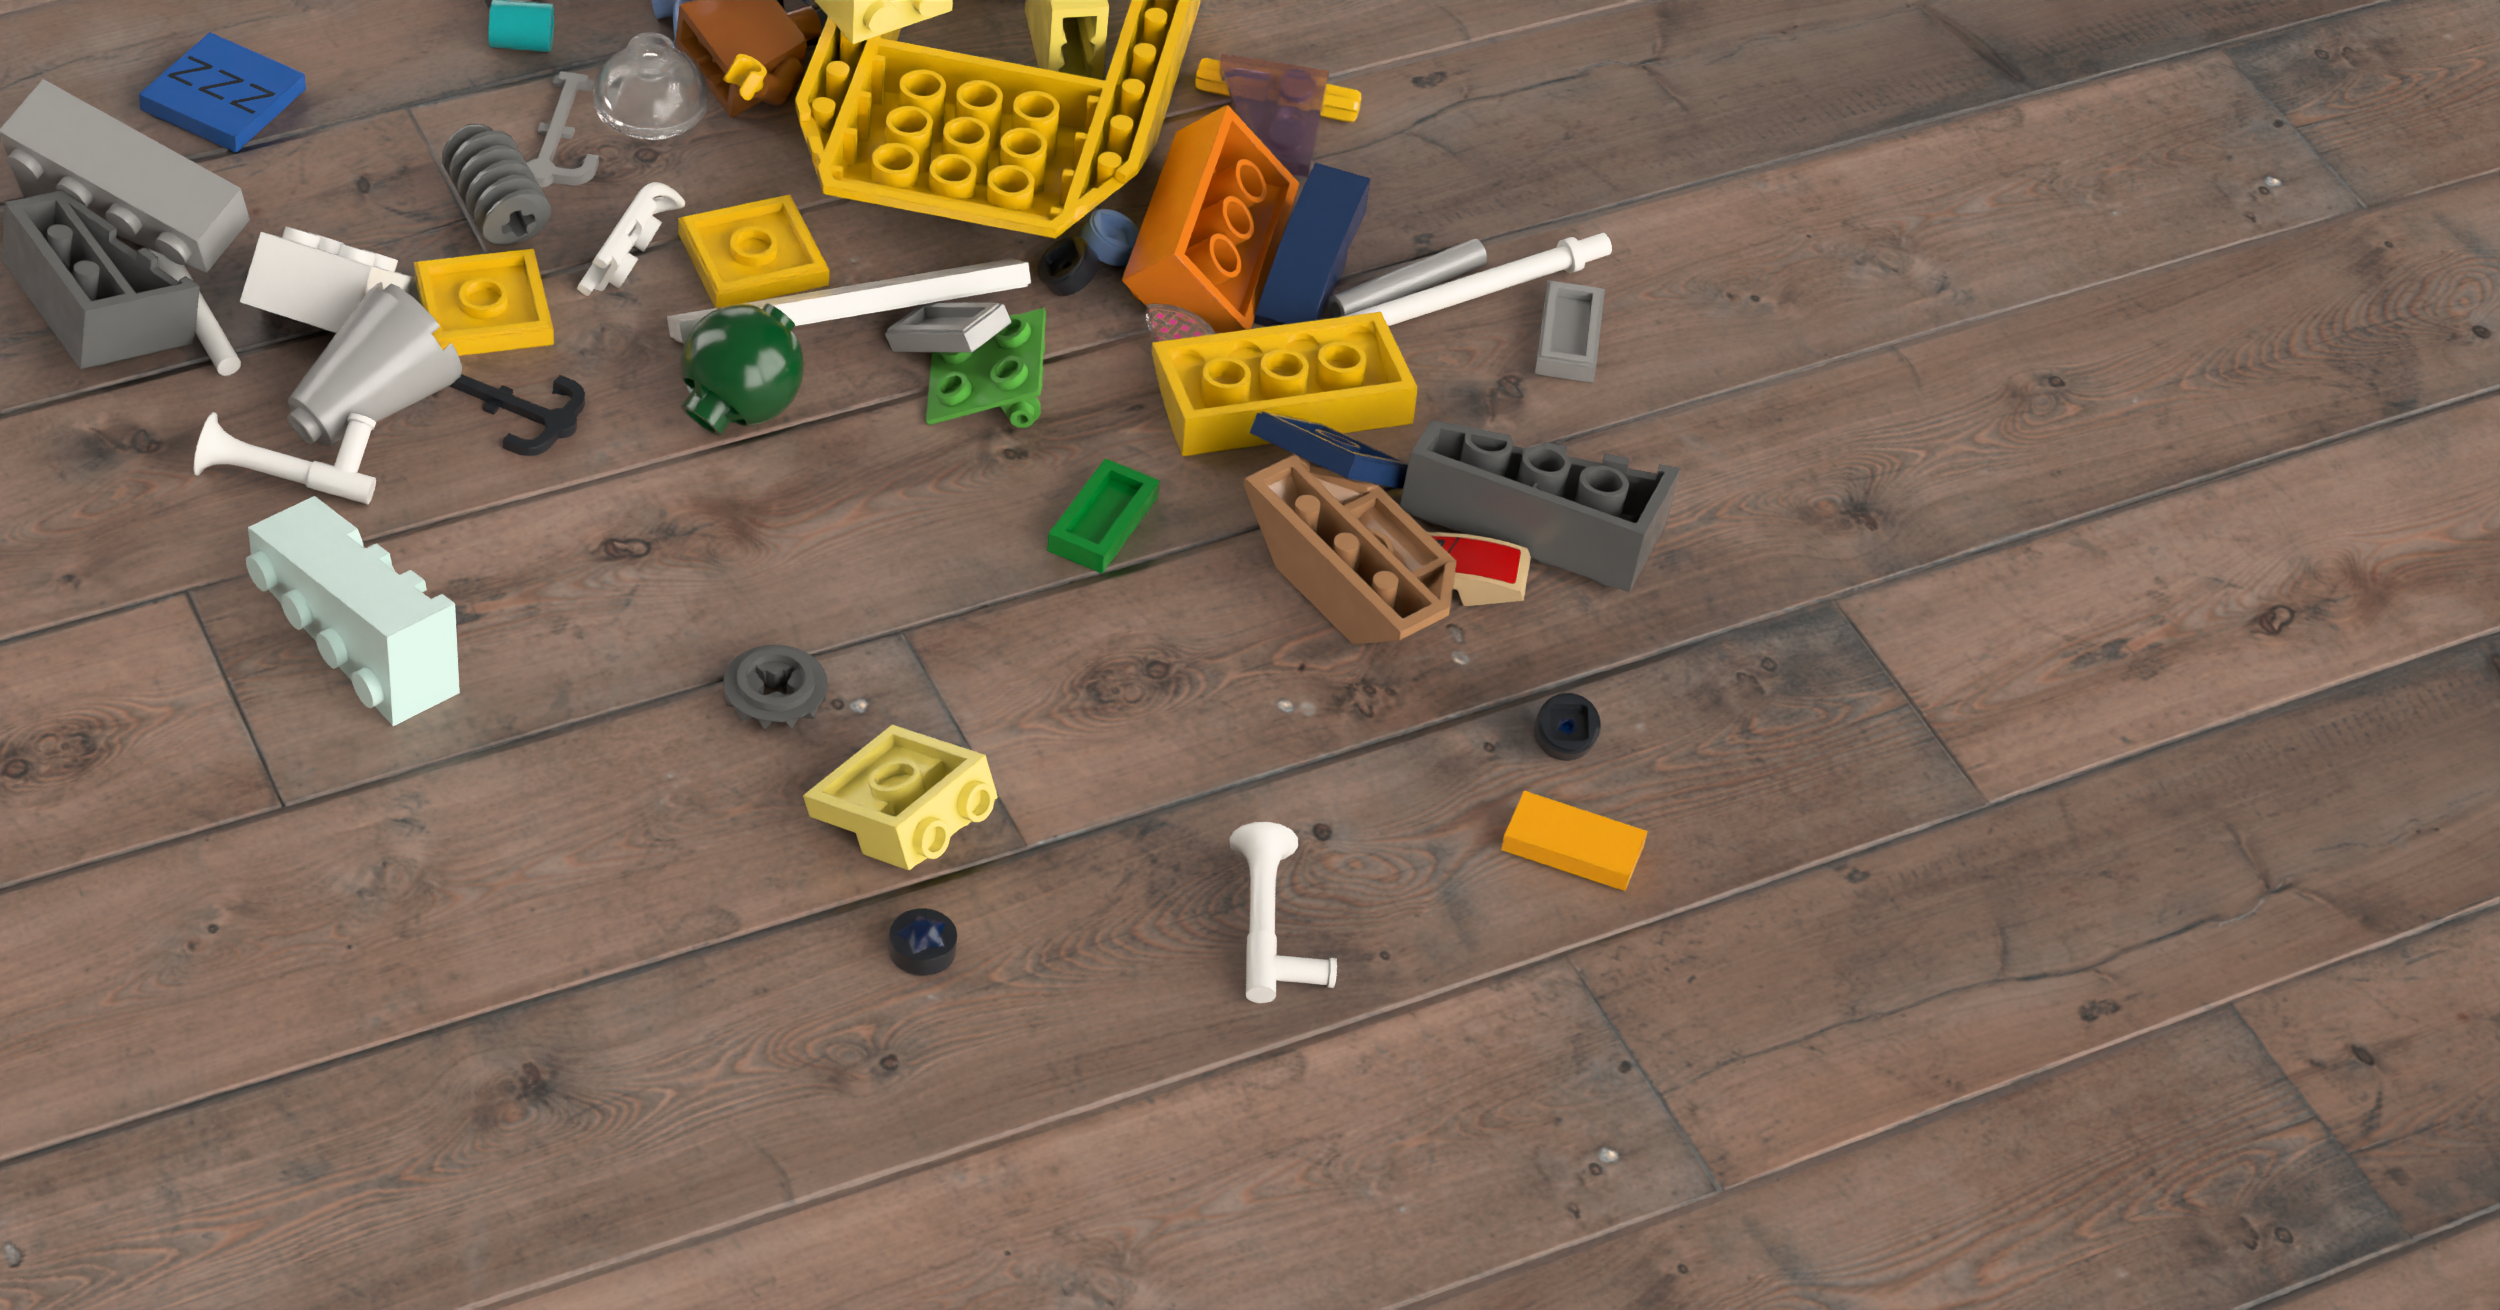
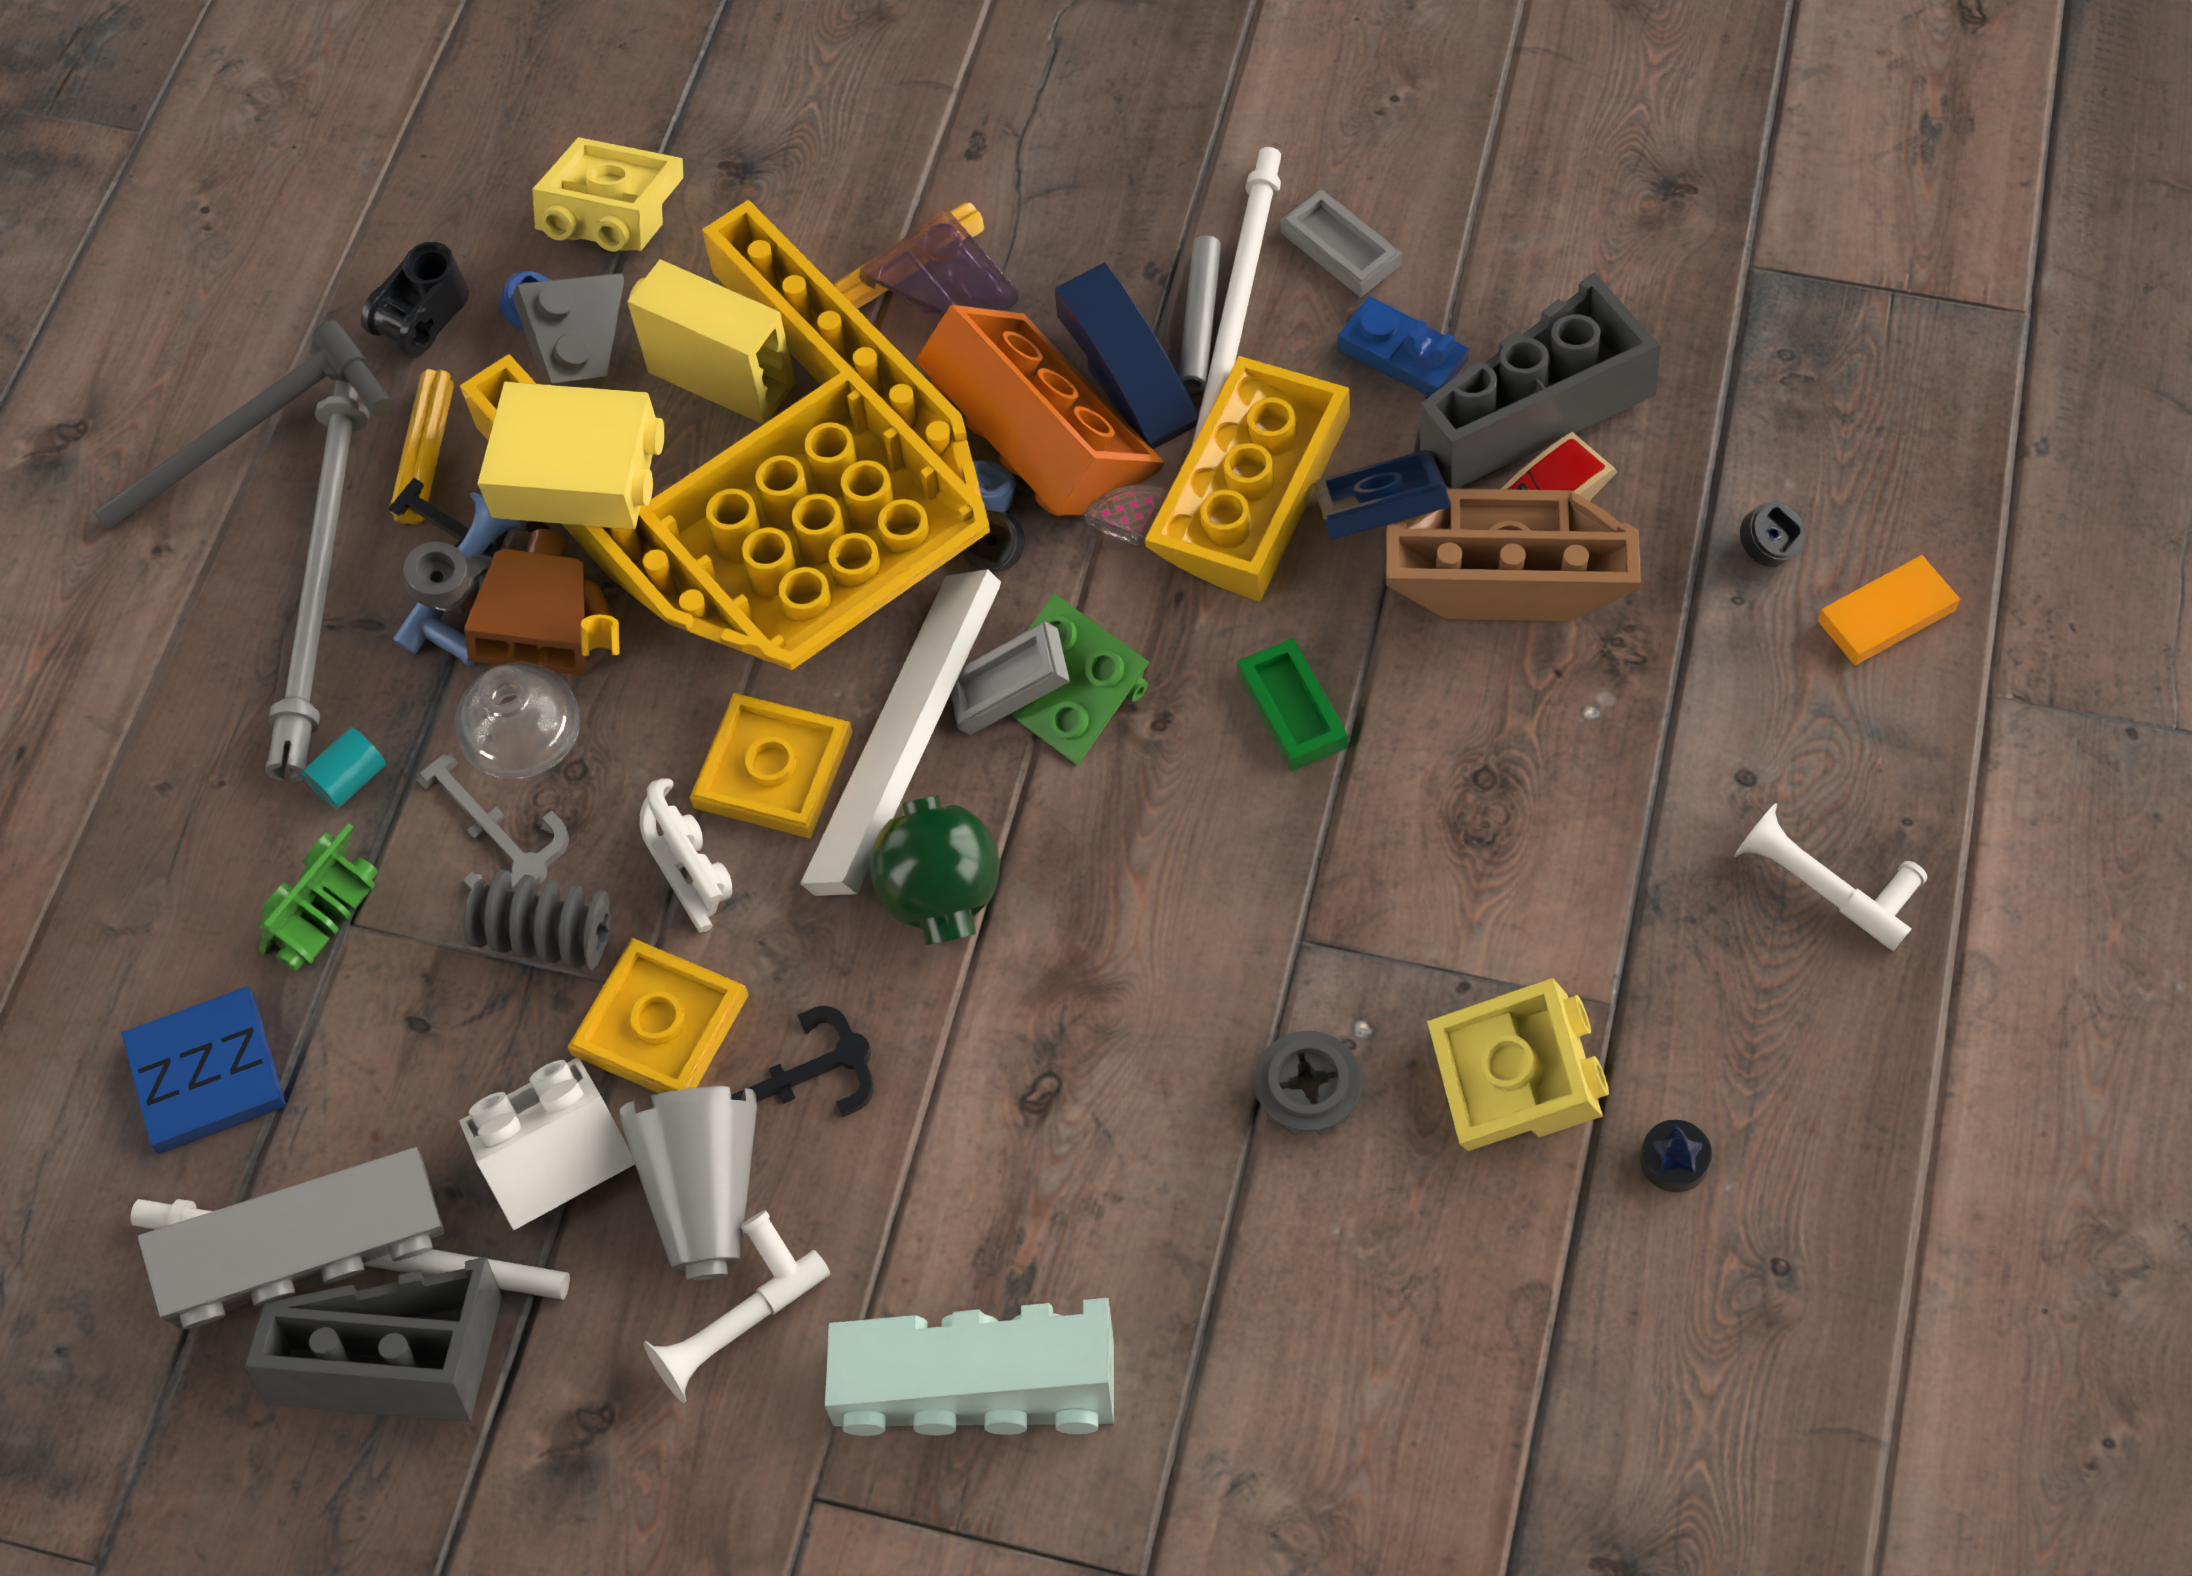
camera: 40 degrees left, 15 degrees up
(398, 48) = (326, 871): none -> bright green hinge
(1507, 403) = (1402, 347): none -> blue plate

